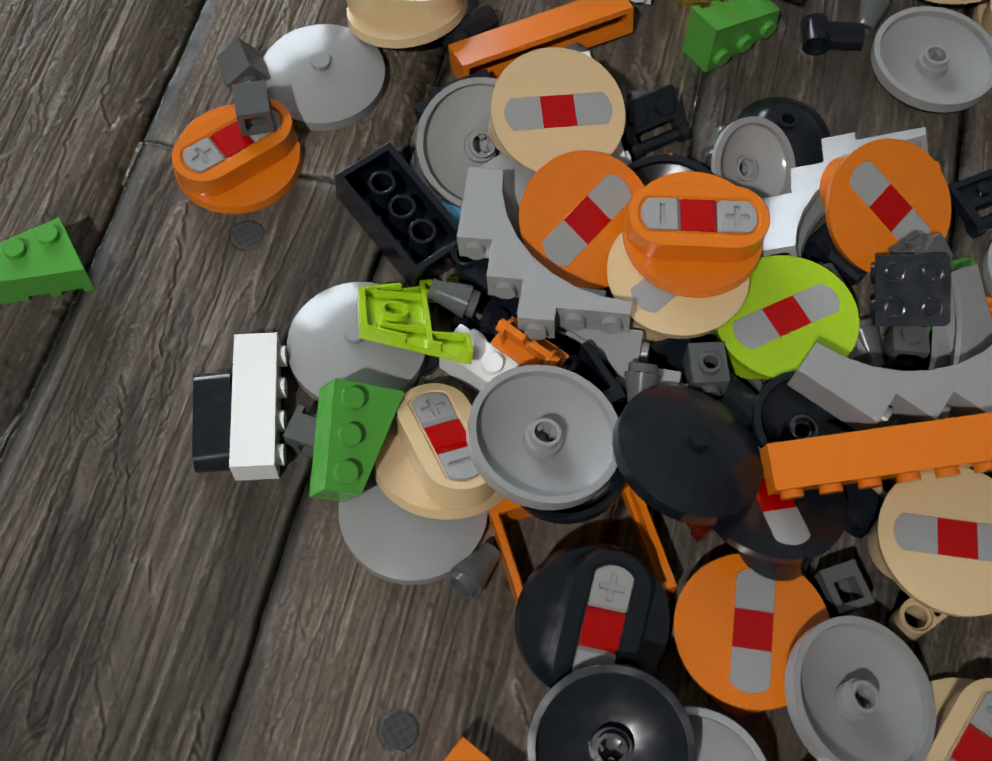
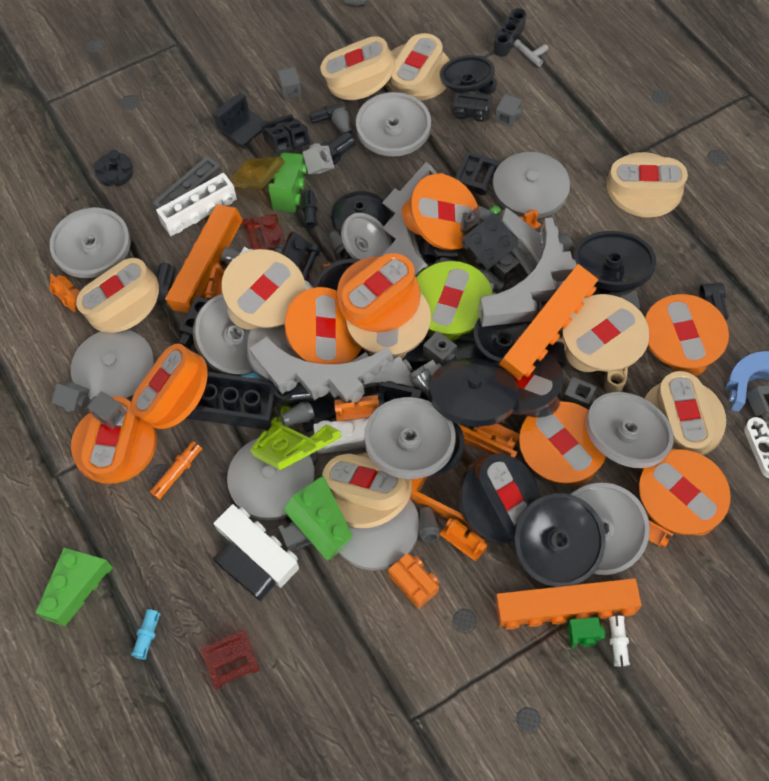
camera: 40 degrees left, 0 degrees up
(44, 391) = (146, 634): none -> medium azure pin
(100, 494) = (226, 652): none -> clear red plate
(265, 243) = (182, 462): none -> orange pin
(345, 141) = (171, 388): none -> orange piece
(386, 620) = (414, 580): none -> orange brick
(496, 630) = (469, 544): none -> orange hinge
(652, 69) = (270, 230): none -> clear red plate
(679, 545) = (499, 434): none -> orange hinge
(724, 80) = (309, 209): none -> black axle
(792, 28) = (318, 159): none -> light grey brick

